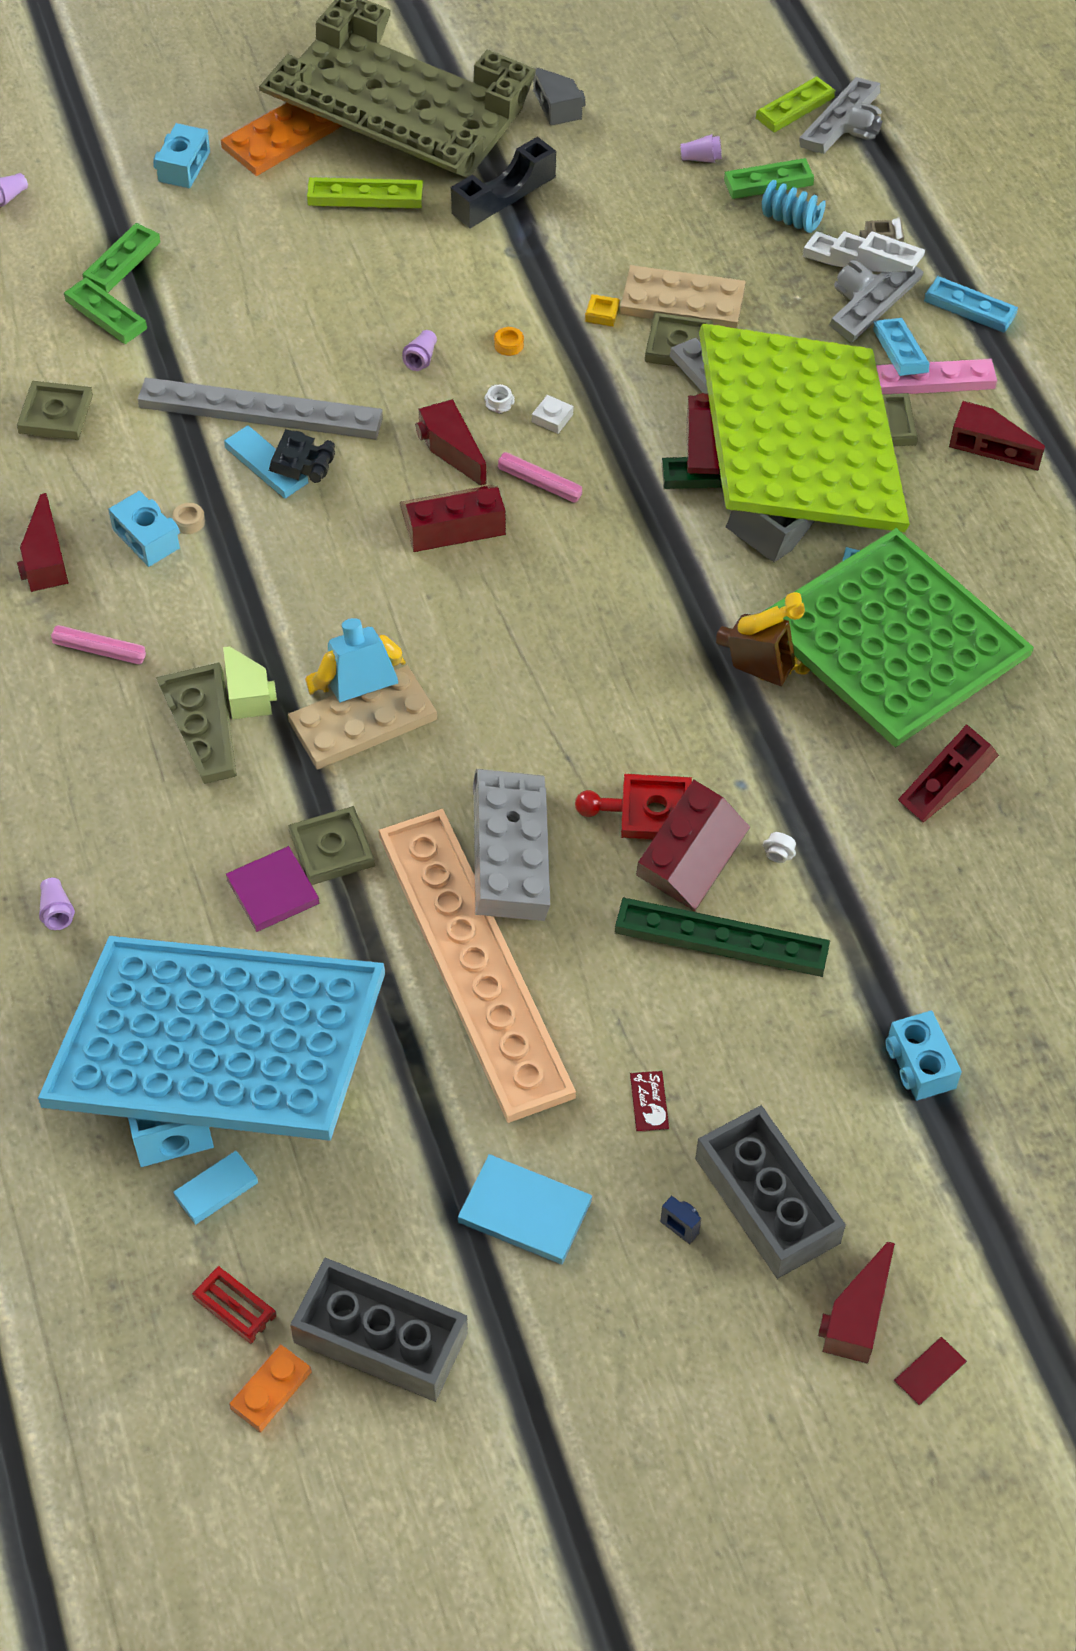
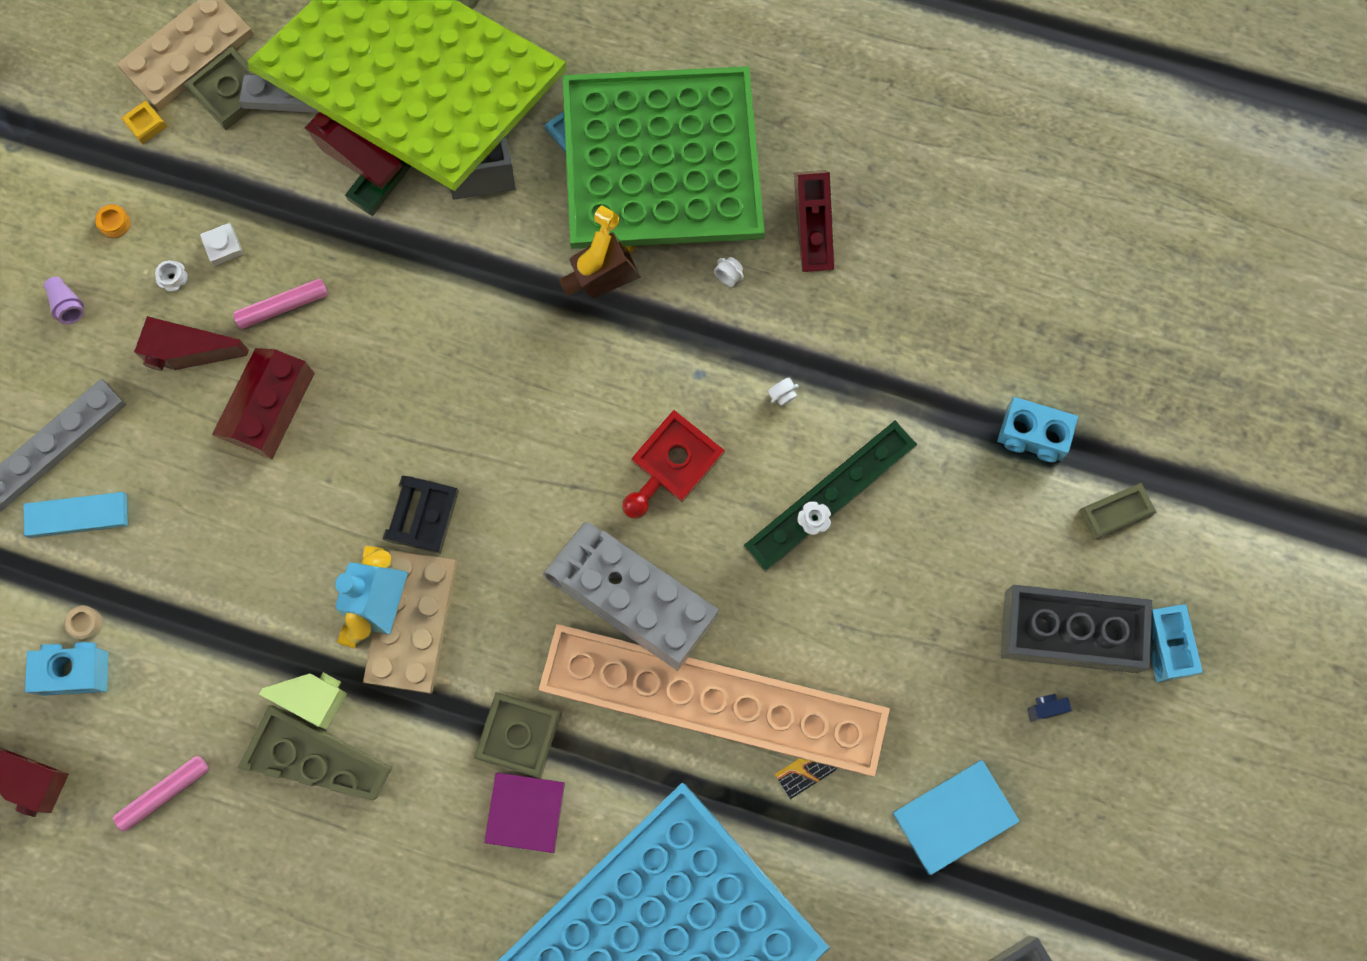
camera: 50 degrees left, 20 degrees up
(299, 456) = (91, 490): black plate -> none
(457, 674) = (431, 515): none -> black plate
(465, 1071) = (802, 775): none -> sticker
(649, 1101) = (926, 654): dark red sticker -> none
(685, 936) = (810, 526): none -> white plate
(692, 846) = (740, 459): dark red slope -> none
(823, 1277) = (1173, 644): none -> medium azure brick
(846, 745) = (729, 271): none -> white plate
(857, 1310) = (1216, 643): dark red slope -> none
(910, 1171) = (1117, 511): none -> olive tile
(930, 1370) = (1275, 619): dark red sticker -> none

